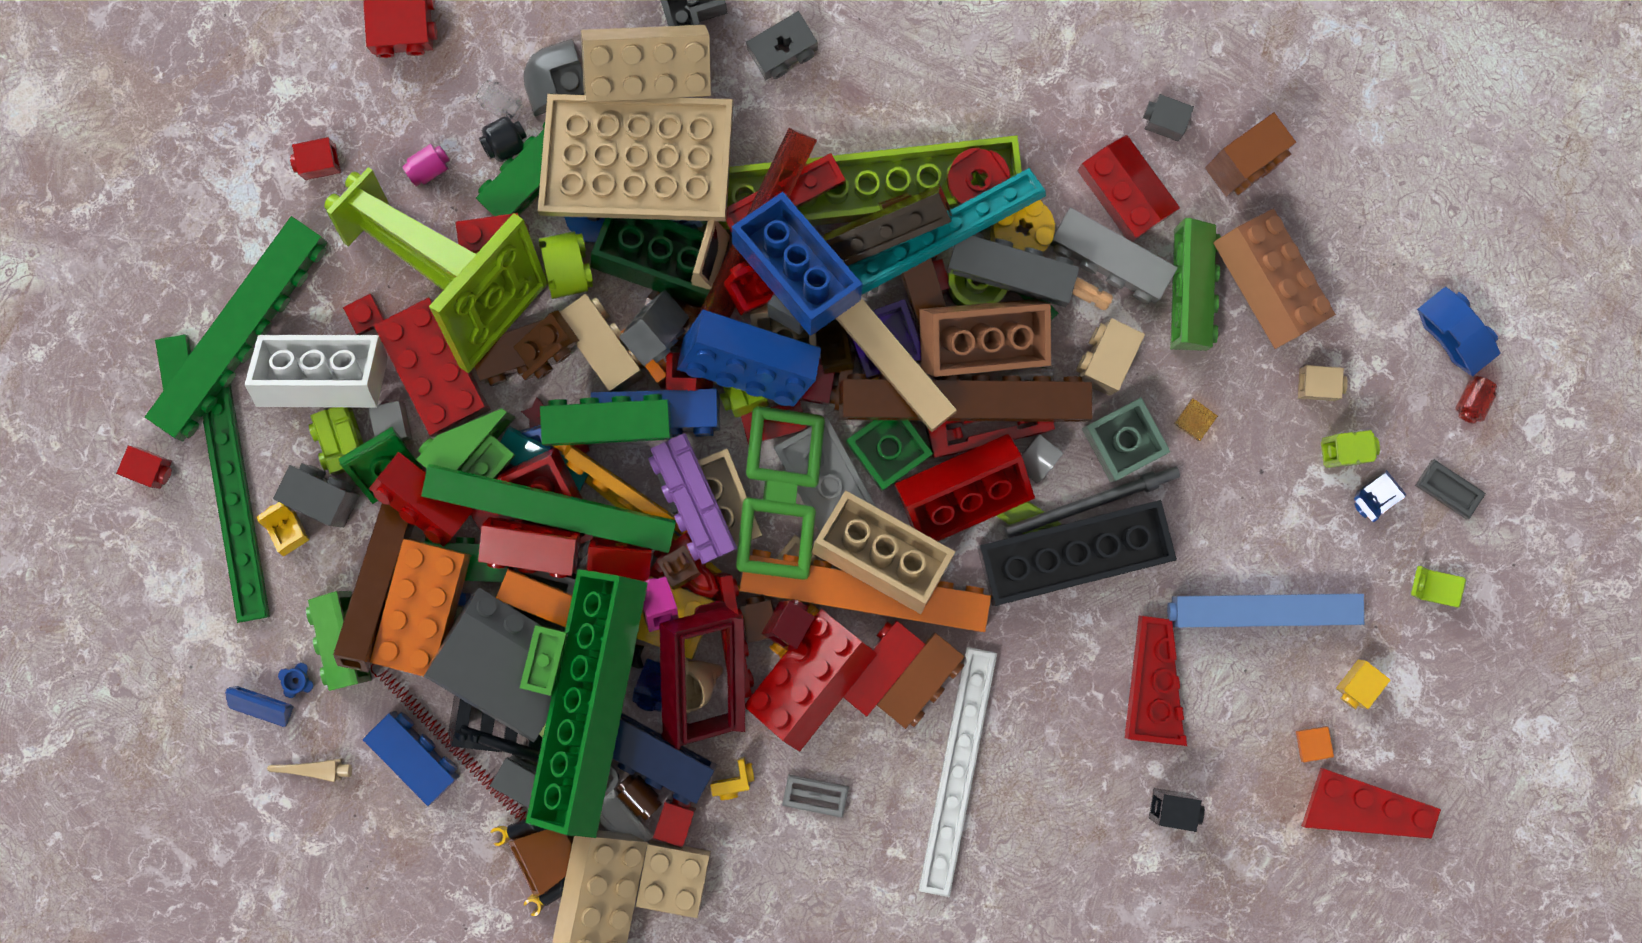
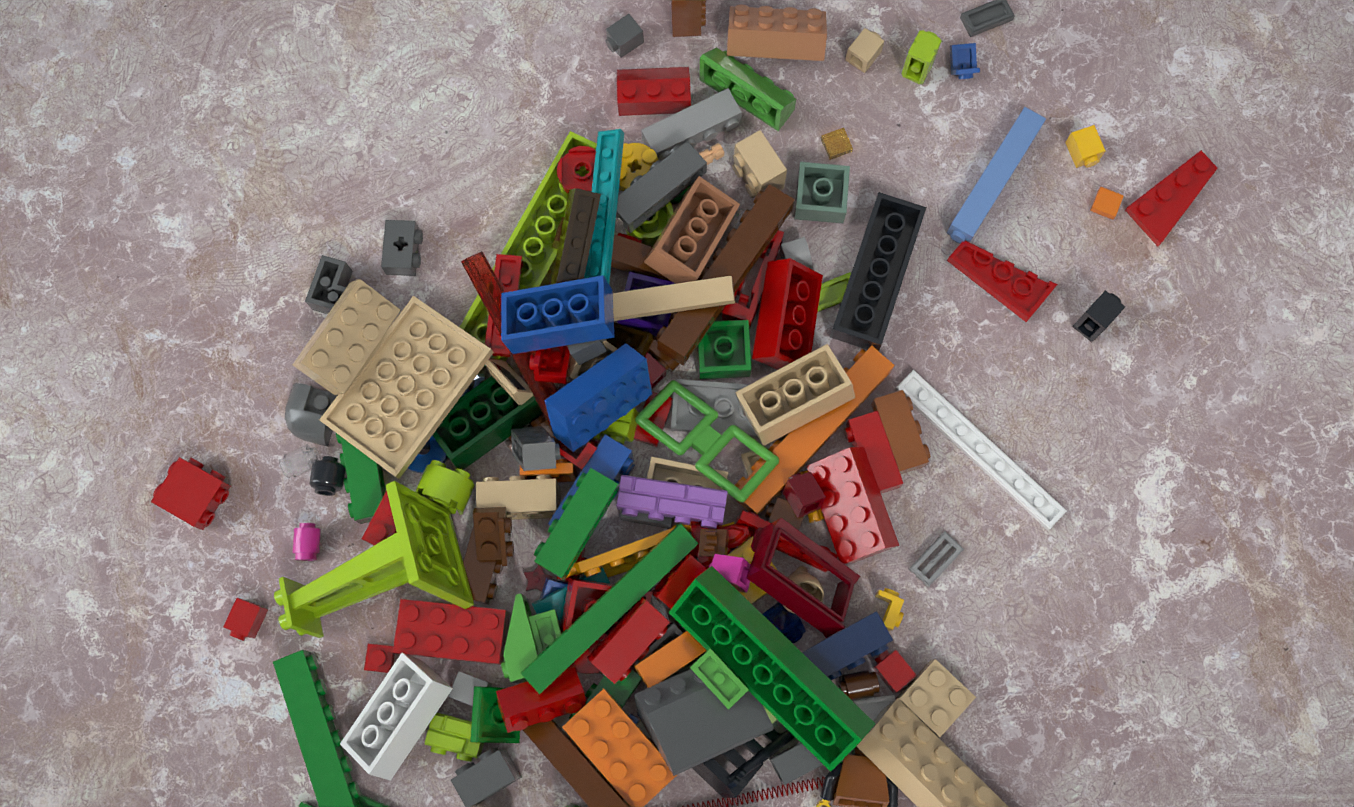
camera: 50 degrees left, 10 degrees down
(1147, 482) = (858, 199): flat silver bar -> none
(1438, 587) = (1050, 60): lime bracket -> none

